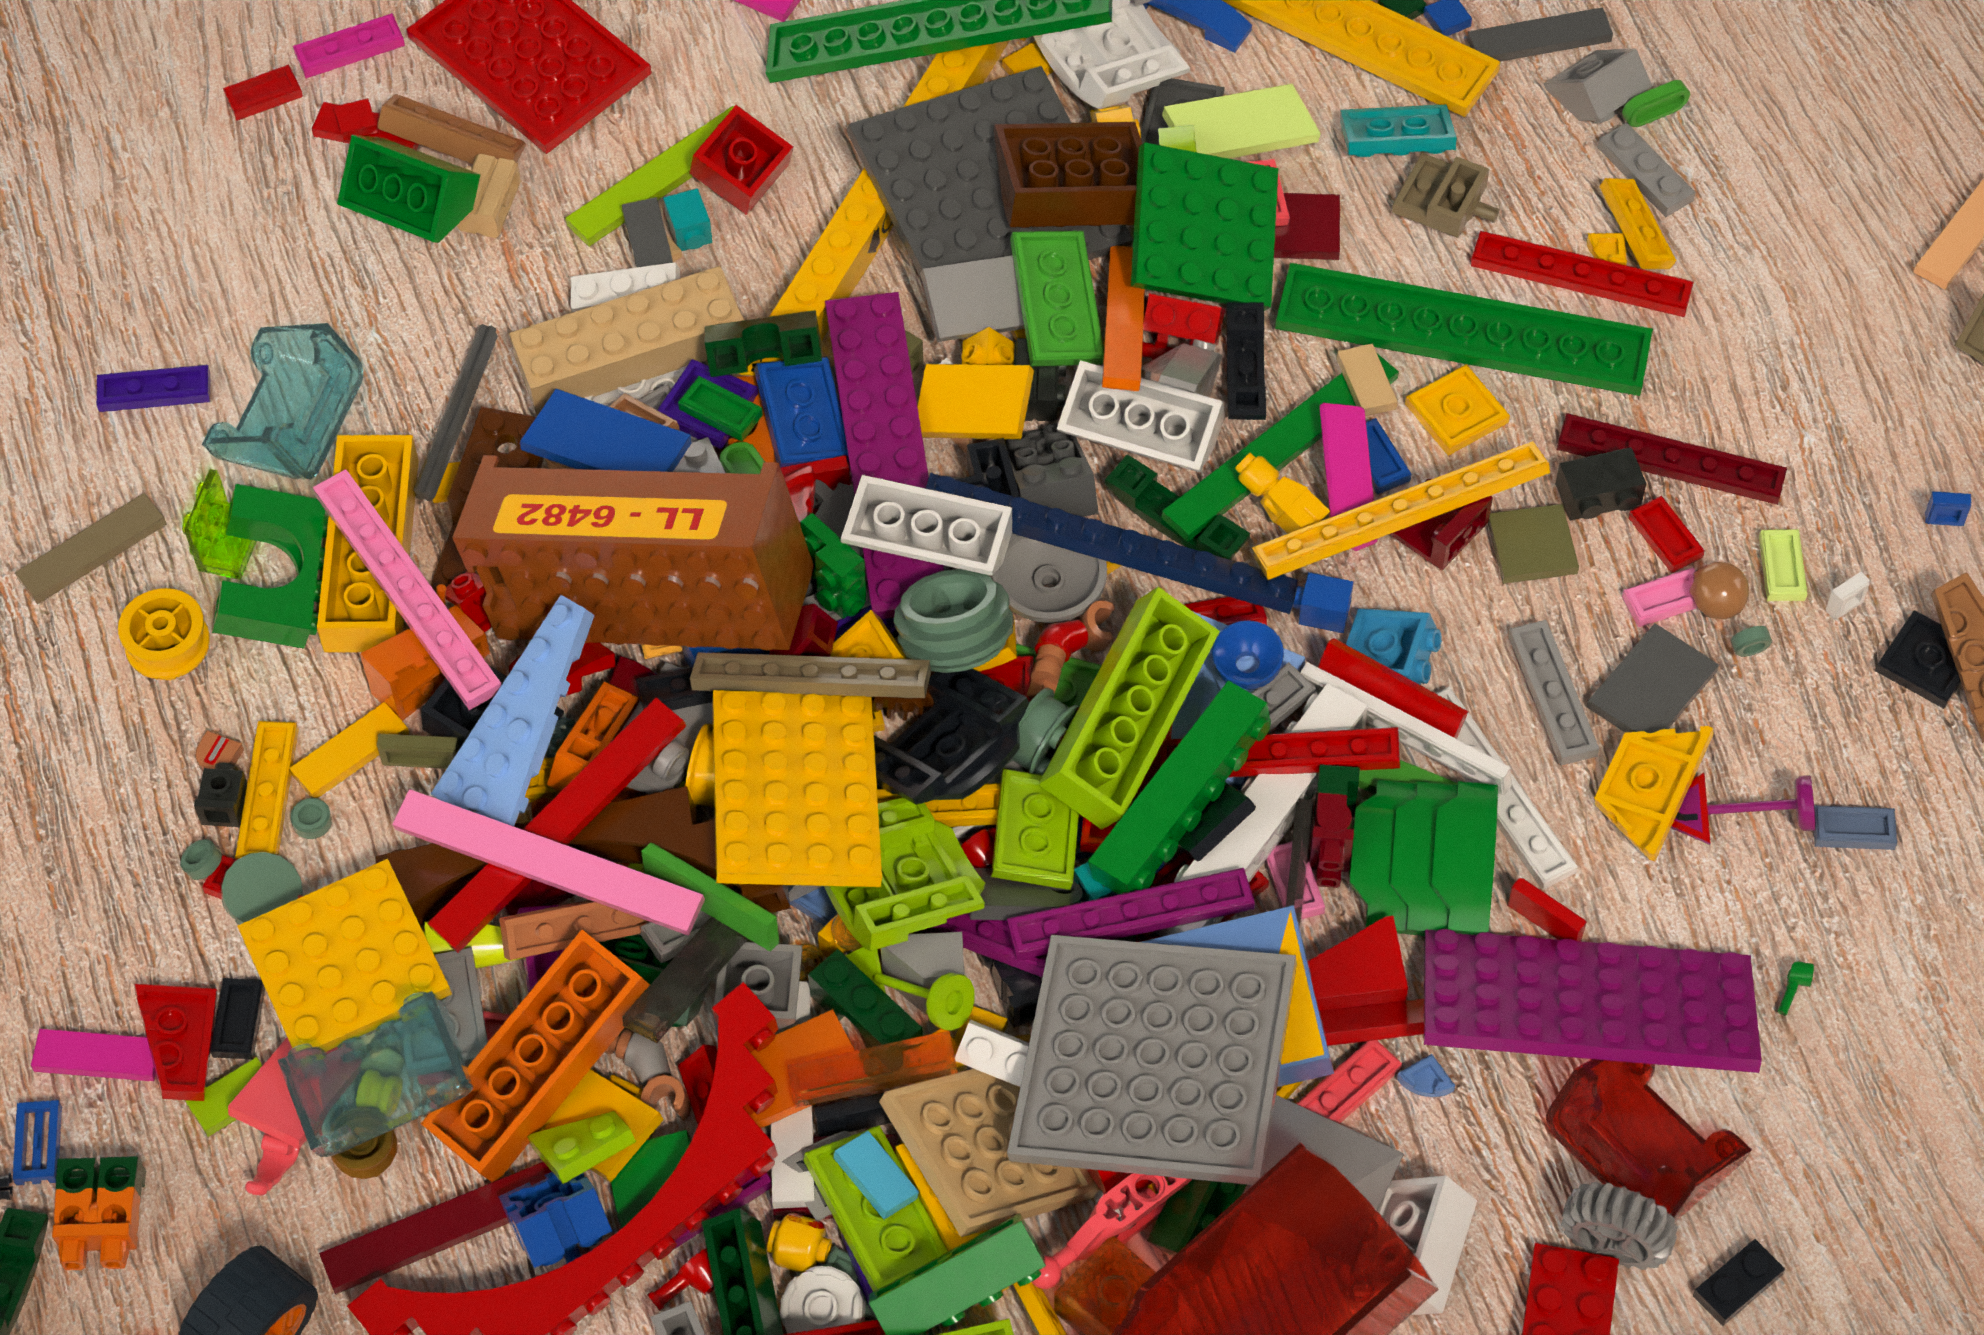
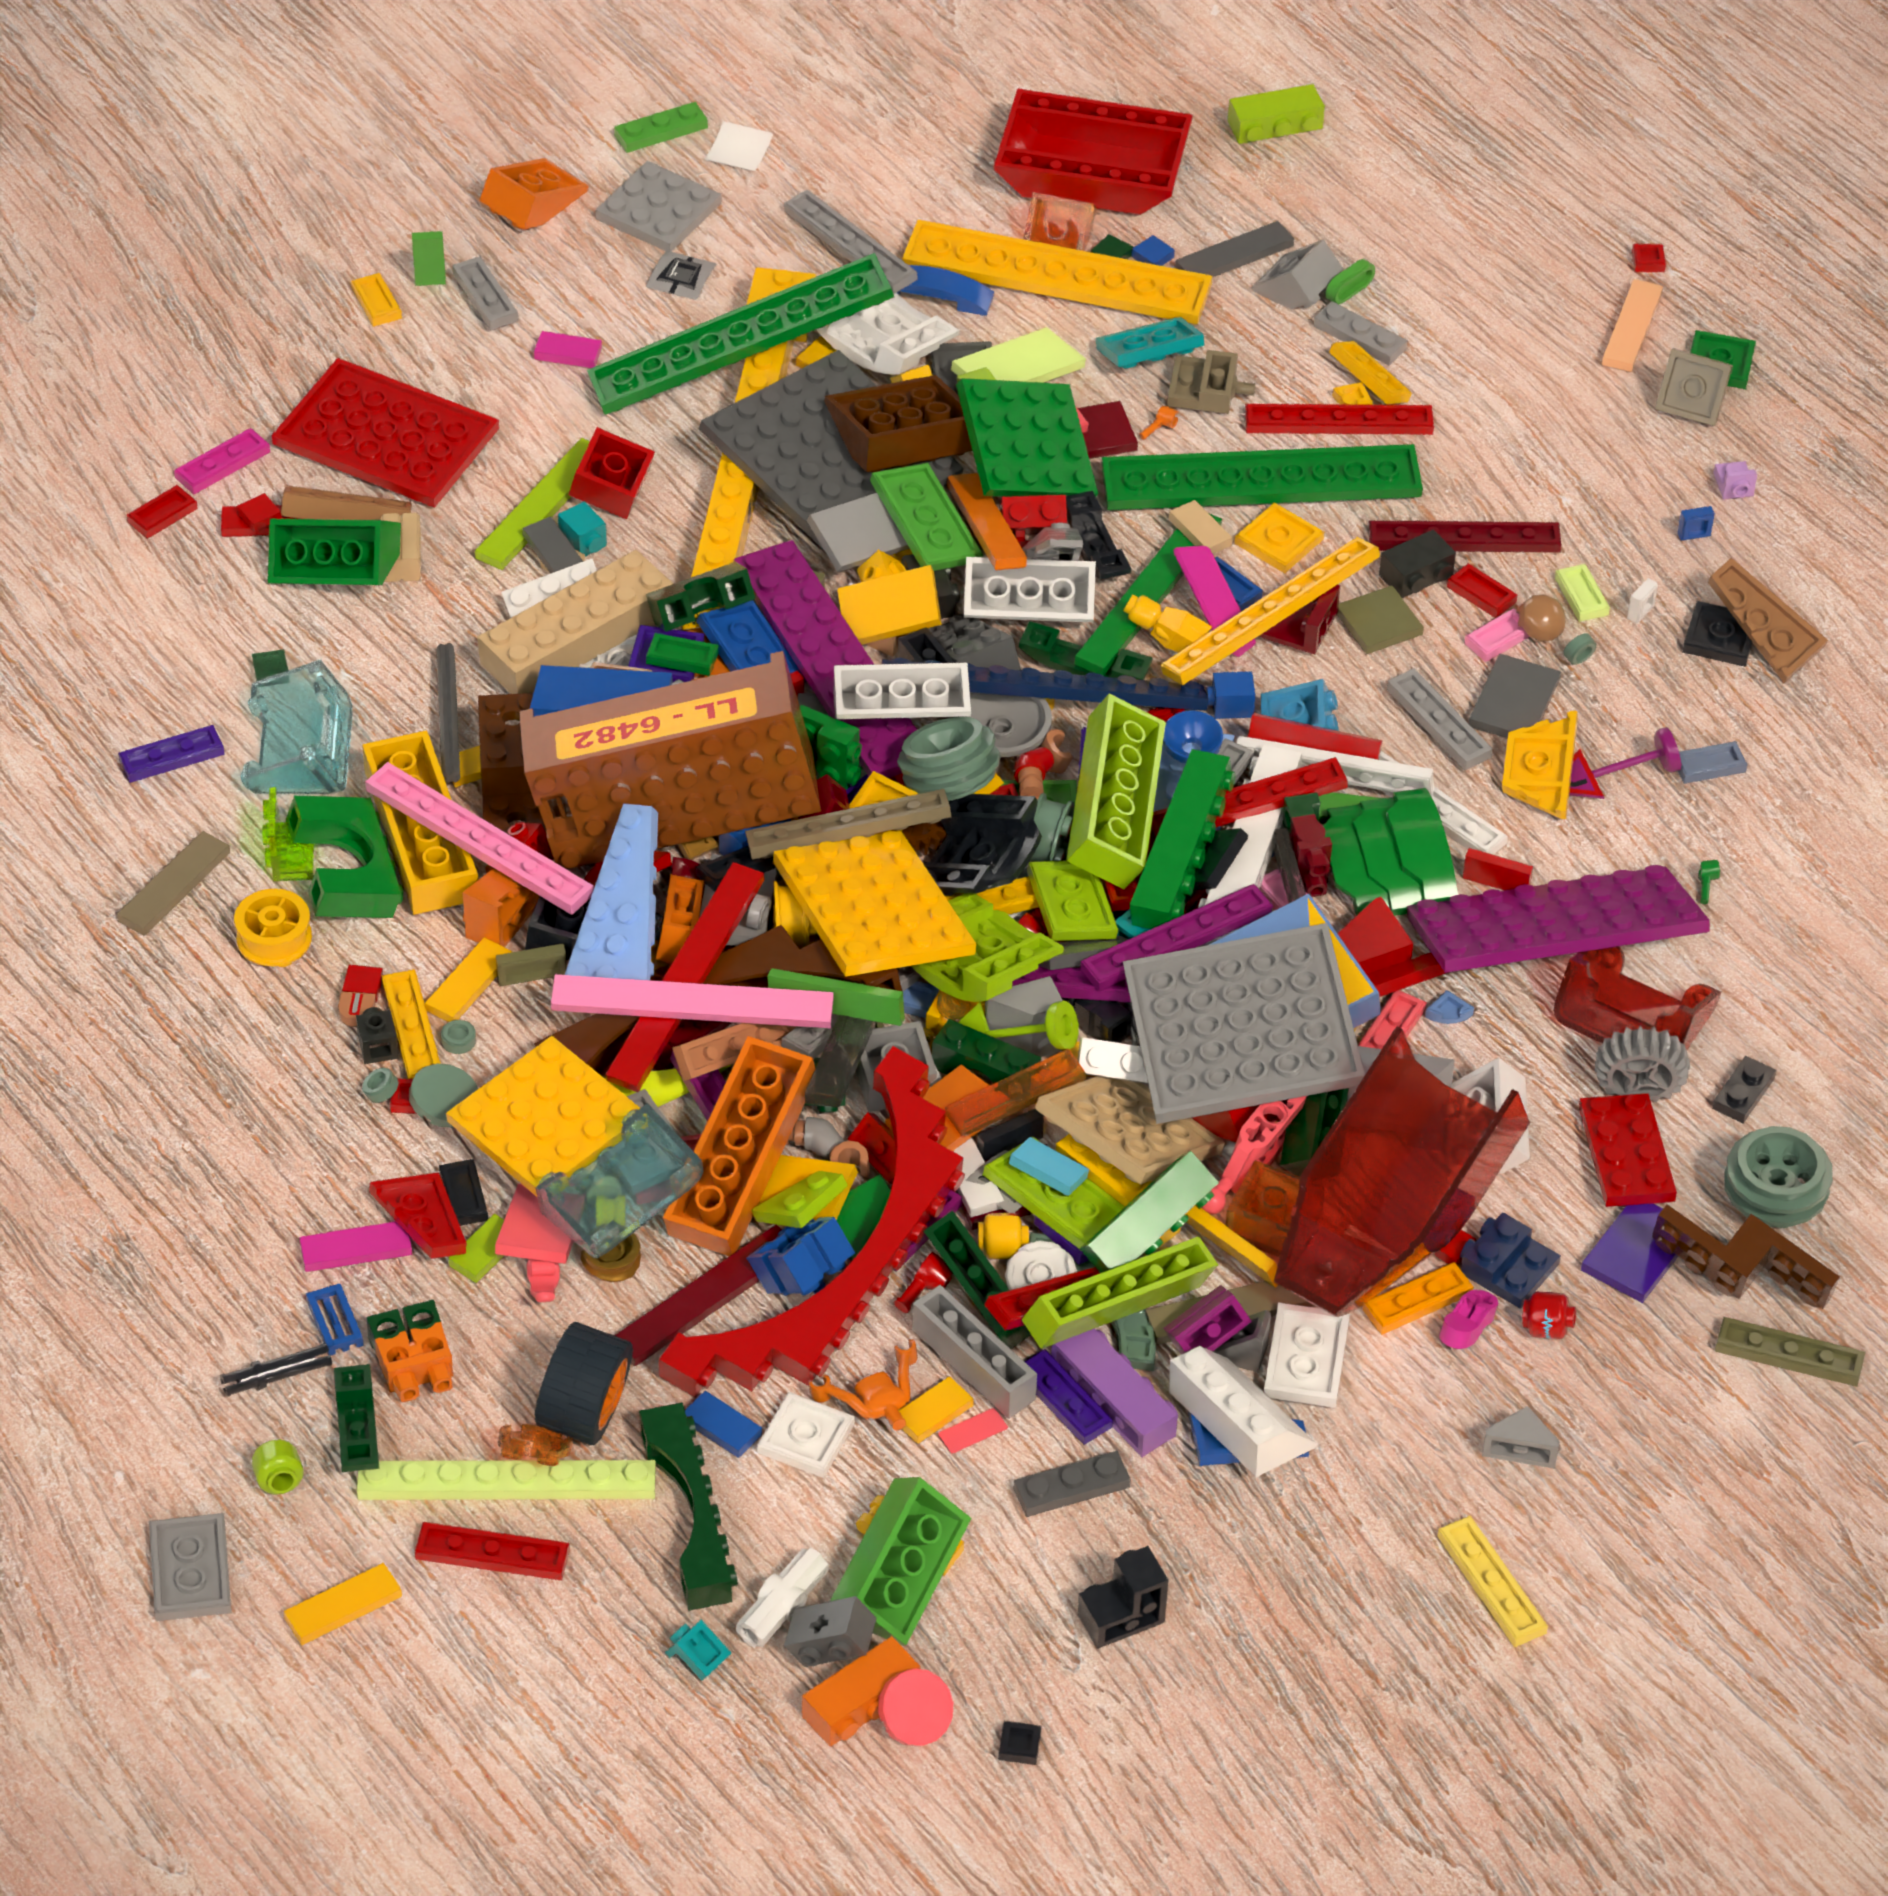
camera: 20 degrees left, 10 degrees down
(237, 722) = (363, 980): none -> red tile
(297, 307) = (269, 664): none -> clear green tile
(1383, 225) = (1165, 417): none -> orange hand

